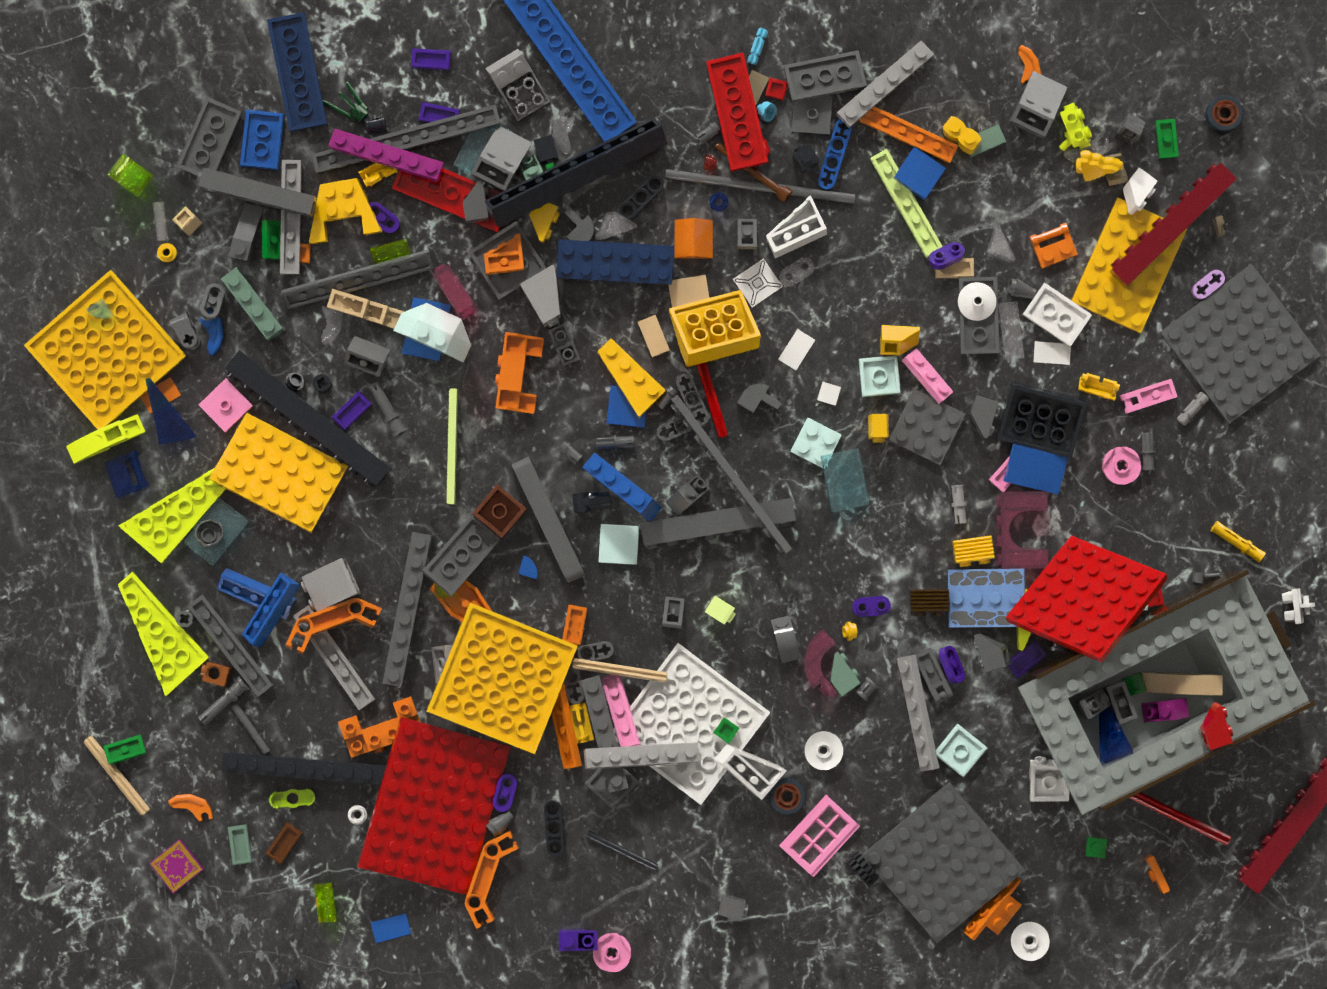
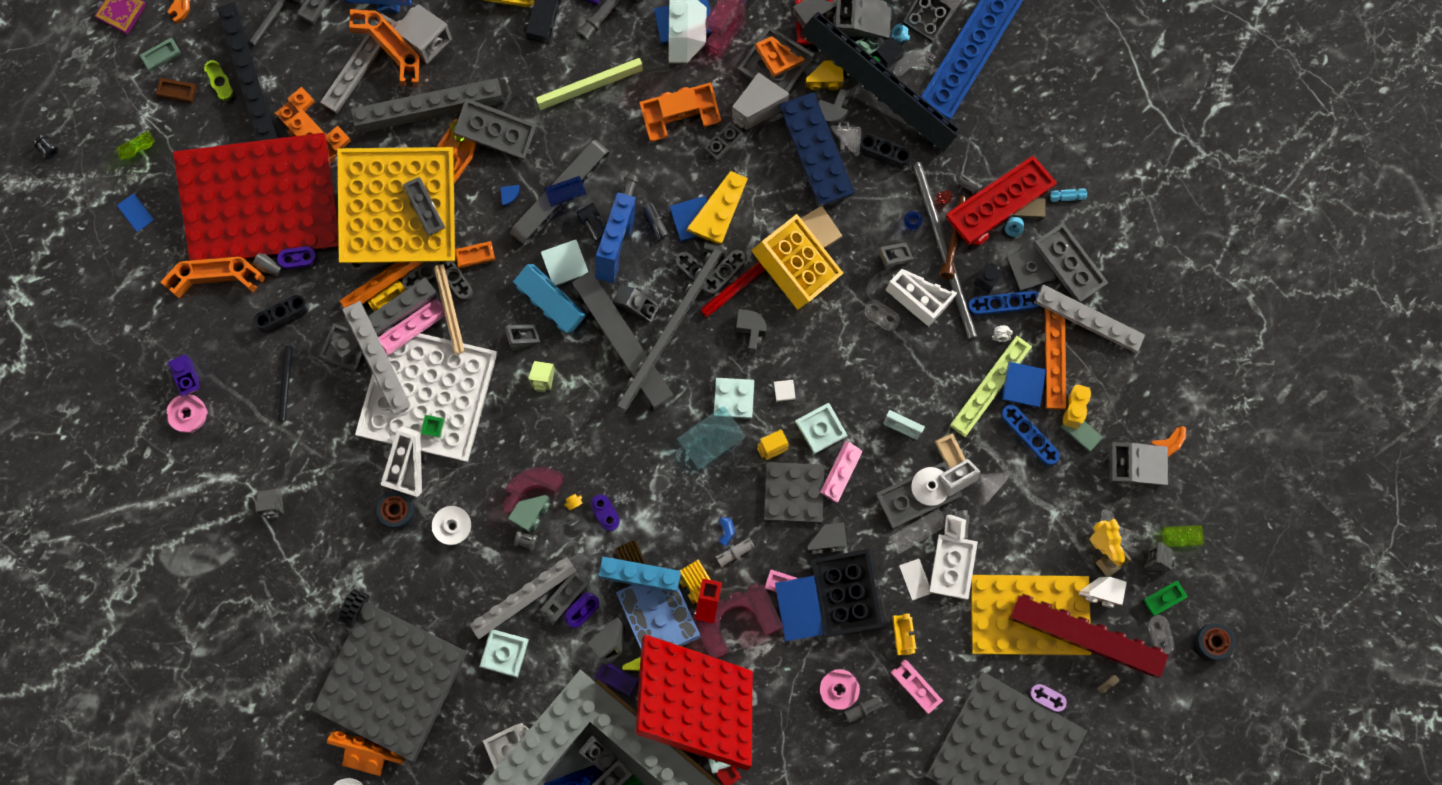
camera: 65 degrees right, 10 degrees down
(353, 819) = (224, 136): white plate -> none
(499, 511) = (549, 146): copper brick -> none
(516, 653) = (423, 206): none -> dark grey tile
(530, 130) = (900, 33): none -> medium azure tile
(553, 514) = (565, 191): none -> clear blue tile
(649, 572) = (549, 298): none -> dark azure brick
(653, 336) = (766, 214): tan tile -> none
(693, 238) = (870, 213): orange slope -> none
(757, 282) = (856, 285): white sticker -> none
(776, 89) = (1037, 227): red tile -> none
(785, 639) = (539, 445): dark grey brick -> none
(796, 349) = (812, 345): white sticker -> none
(819, 835) = (370, 556): bright pink piece -> none
(863, 170) = (1002, 334): none -> white plate
(898, 339) = (862, 430): yellow slope -> none
(911, 300) = (903, 425): none -> light aqua tile
(935, 501) = (728, 529): none -> blue arm
(947, 255) = (959, 441): dark purple plate -> none
(947, 599) = (639, 574): none -> dark azure brick
(968, 191) = (1032, 433): none -> blue beam
(979, 272) = (959, 477): none -> light grey slope
(997, 547) = (708, 600): none -> red slope
(1023, 297) = (955, 527): none -> white tile
(1054, 252) = (1012, 542): orange plate -> none
(1076, 131) = (1130, 511): neon yellow brick -> none
(1117, 95) = (1183, 536): none -> clear neon green plate
(1192, 408) = (924, 734): light grey axle -> none
(1196, 157) = (1162, 634): none -> clear plate

